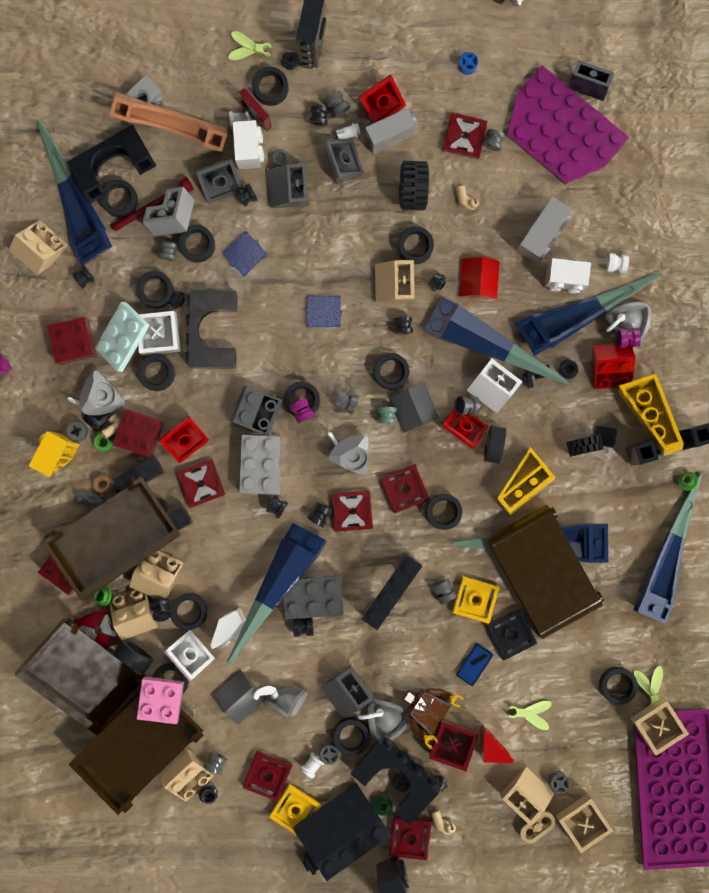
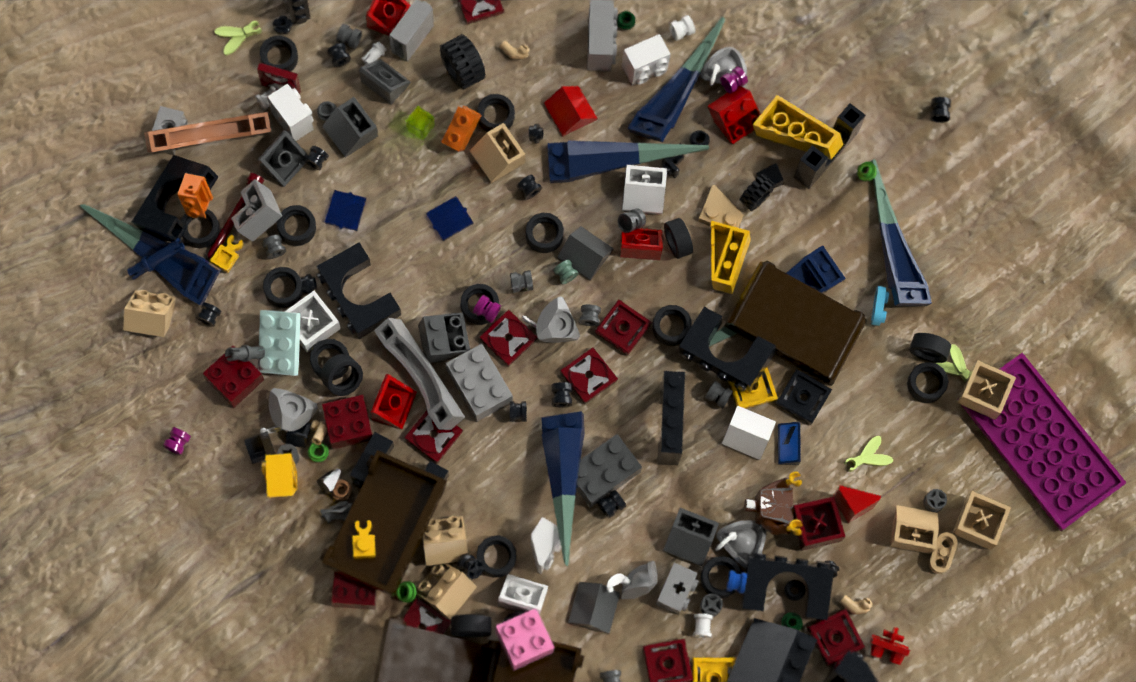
camera: 45 degrees left, 15 degrees down
(59, 412) = (259, 446): none -> black panel
(60, 205) = (148, 263): none -> dark blue pin
(86, 331) = (245, 353): none -> dark grey pin
(87, 545) = (363, 543): none -> yellow plate
(96, 471) = (329, 480): none -> slope
(124, 173) = (194, 195): none -> orange hinge
(125, 236) = (225, 256): none -> yellow plate
(155, 403) = (350, 384): none -> black tyre
(217, 466) = (438, 400): none -> light grey arch
(297, 441) = (506, 349): none -> dark red piece
(316, 715) = (678, 576): none -> light grey brick
(348, 216) = (420, 123): none -> clear neon green panel
(357, 753) = (736, 582): none -> blue wheel
(377, 242) = (461, 128): none -> orange hinge
(383, 463) = (590, 315): none -> dark grey wheel
(448, 637) = (748, 432): none -> white slope
(449, 871) = (898, 650): none -> red hips
(473, 589) = (743, 372): none -> black arch
(546, 441) = (720, 209): none -> tan wing
(579, 223) = (626, 15): none -> dark green plate
(626, 594) = (878, 312): none -> medium azure plate
(638, 661) = (930, 347): none -> black tyre

